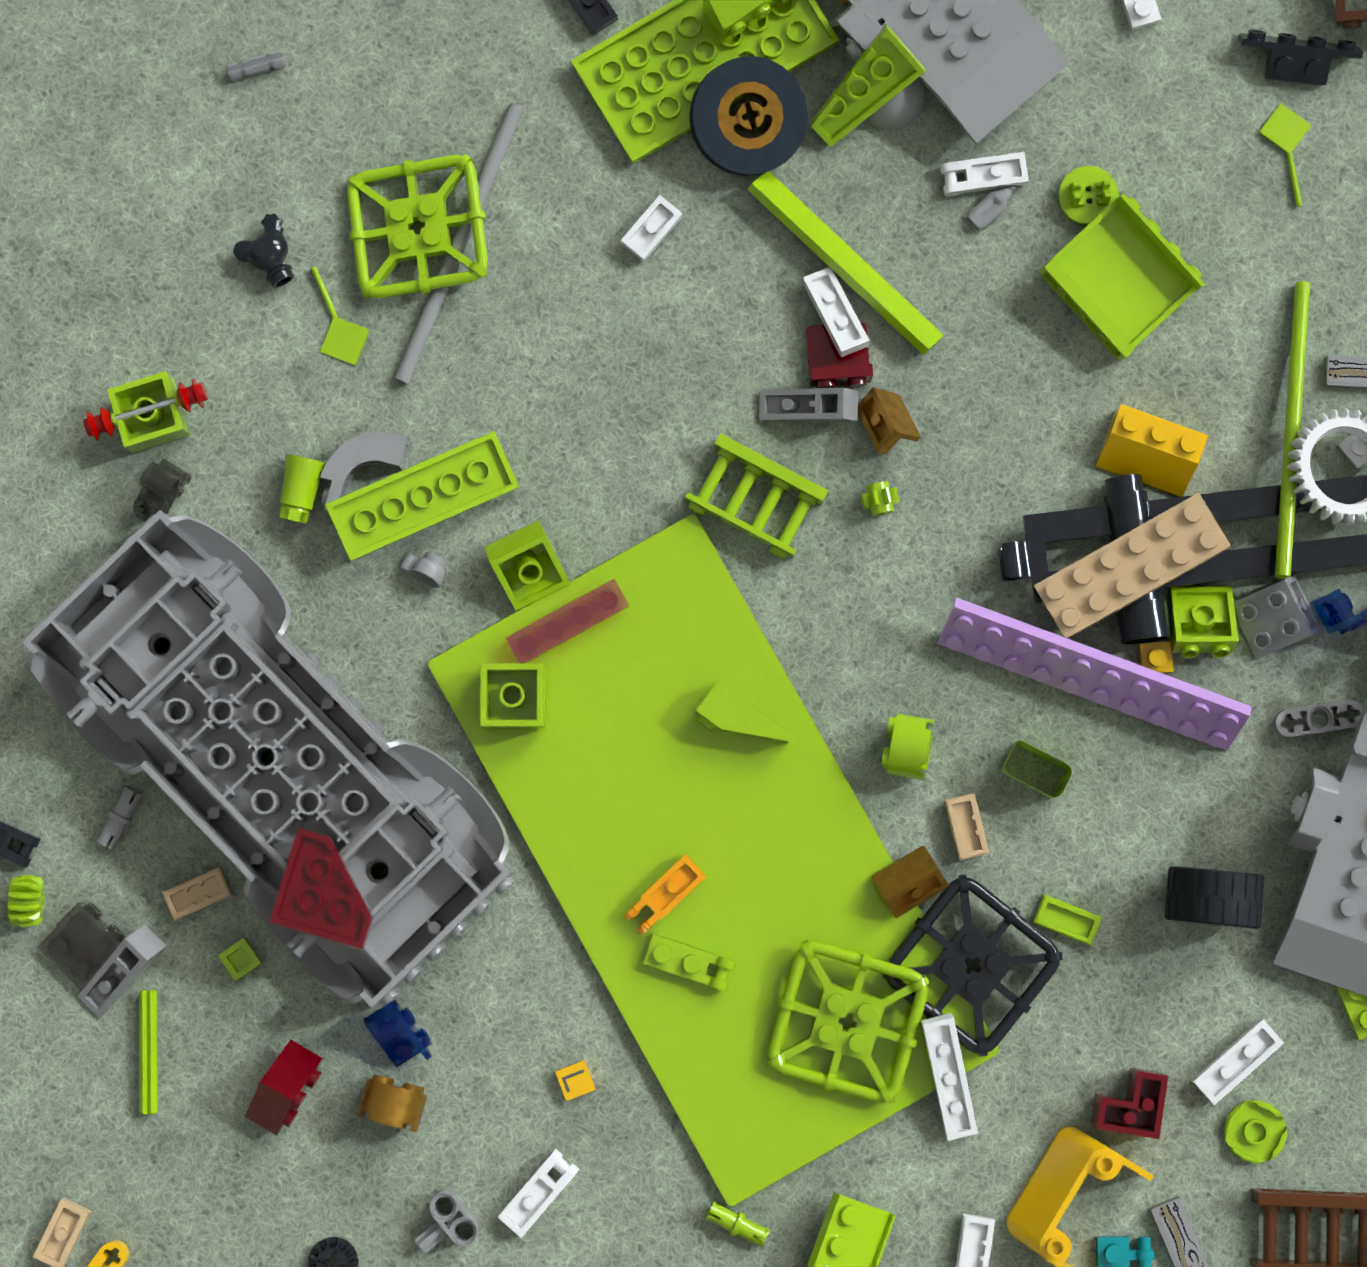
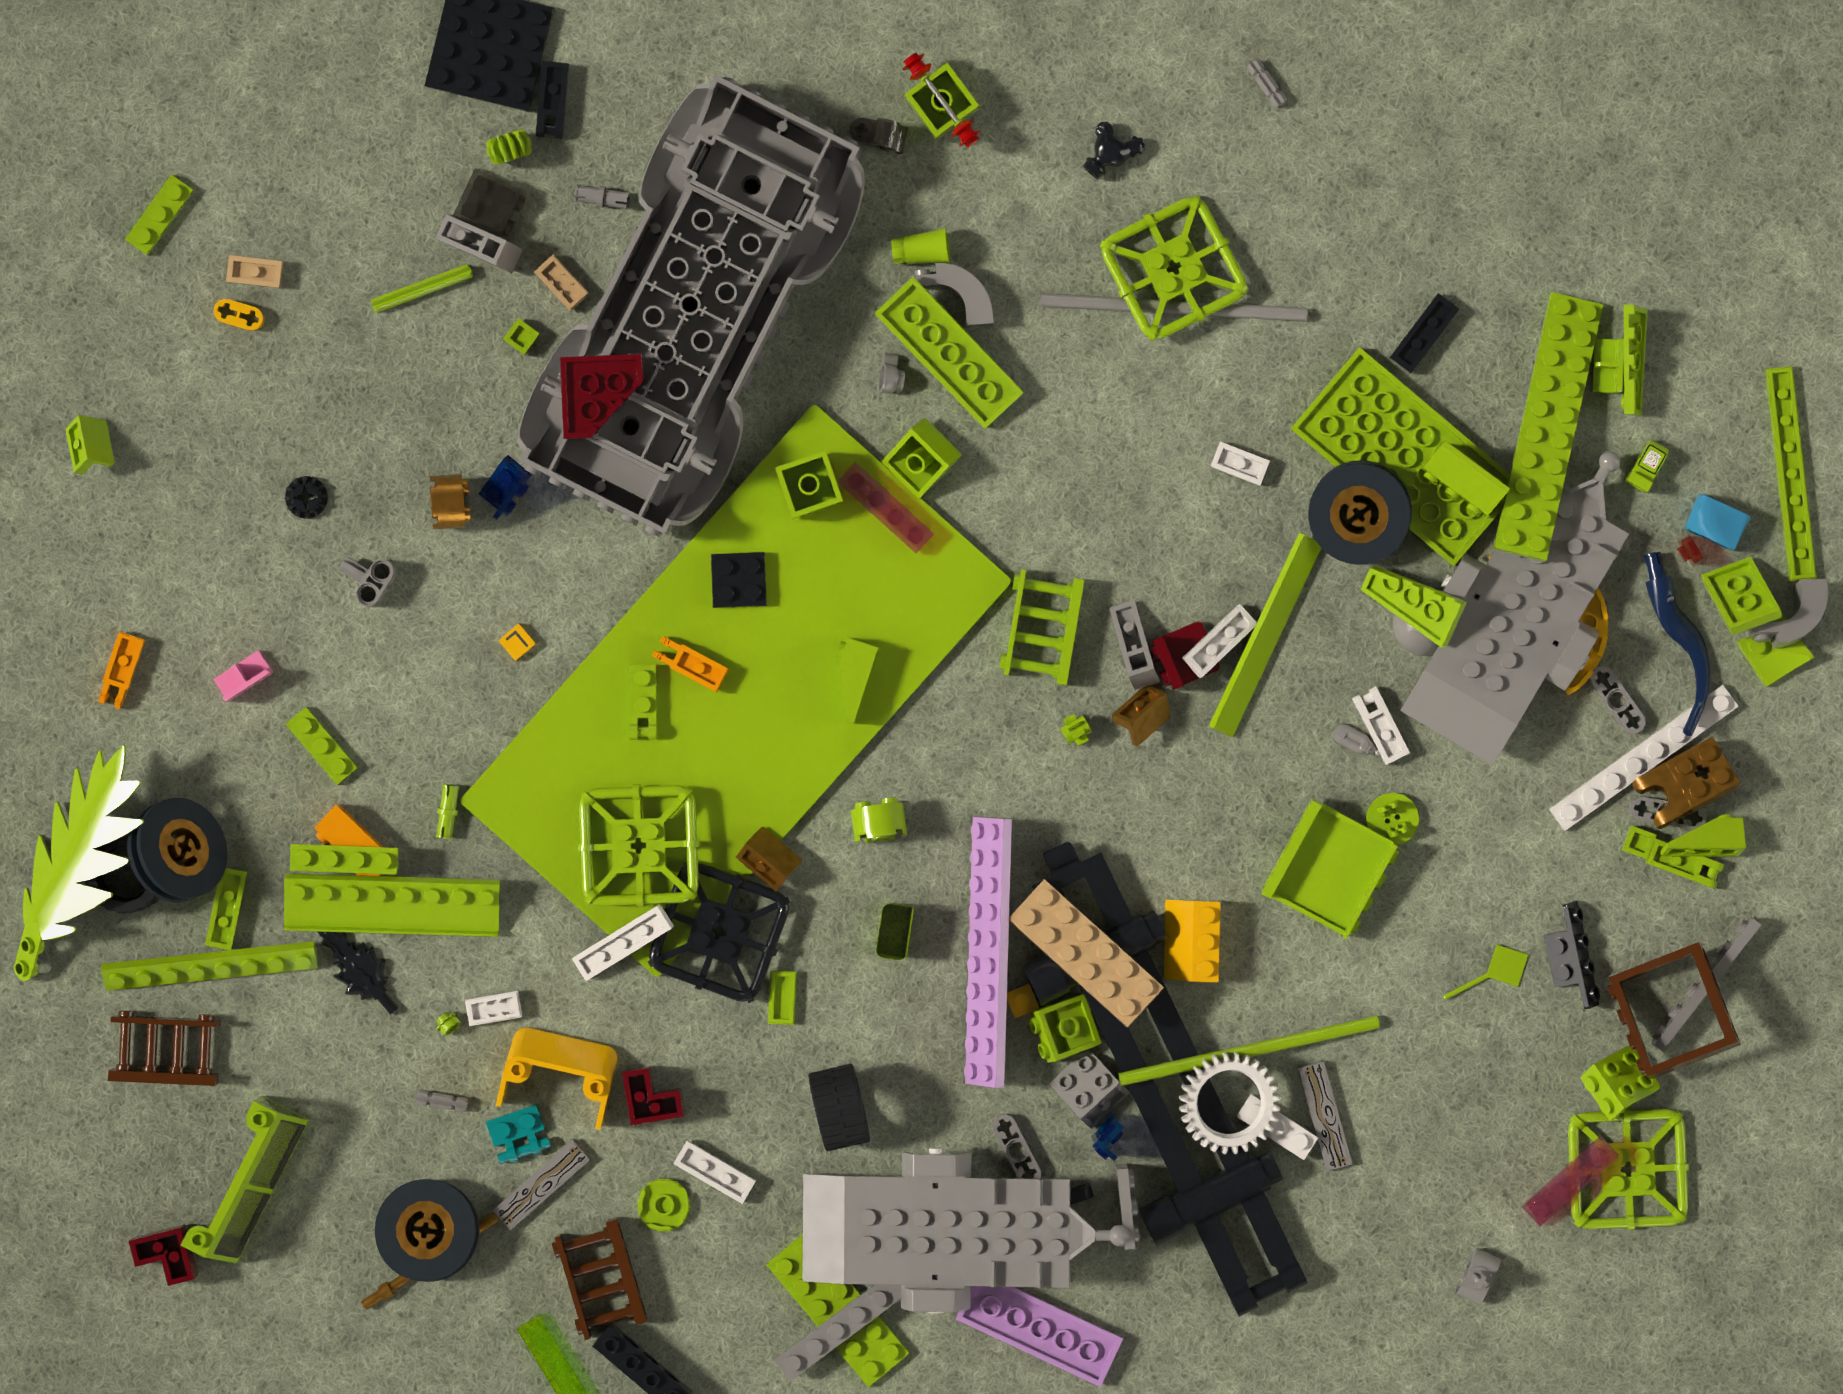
camera: 65 degrees right, 5 degrees up
(283, 1088) = (431, 410): dark red brick -> none
(343, 338) = (1060, 239): lime piece -> none
(537, 1194) = (416, 642): white plate -> none
(590, 810) = (738, 579): none -> black plate
(966, 827) = (829, 890): tan plate -> none

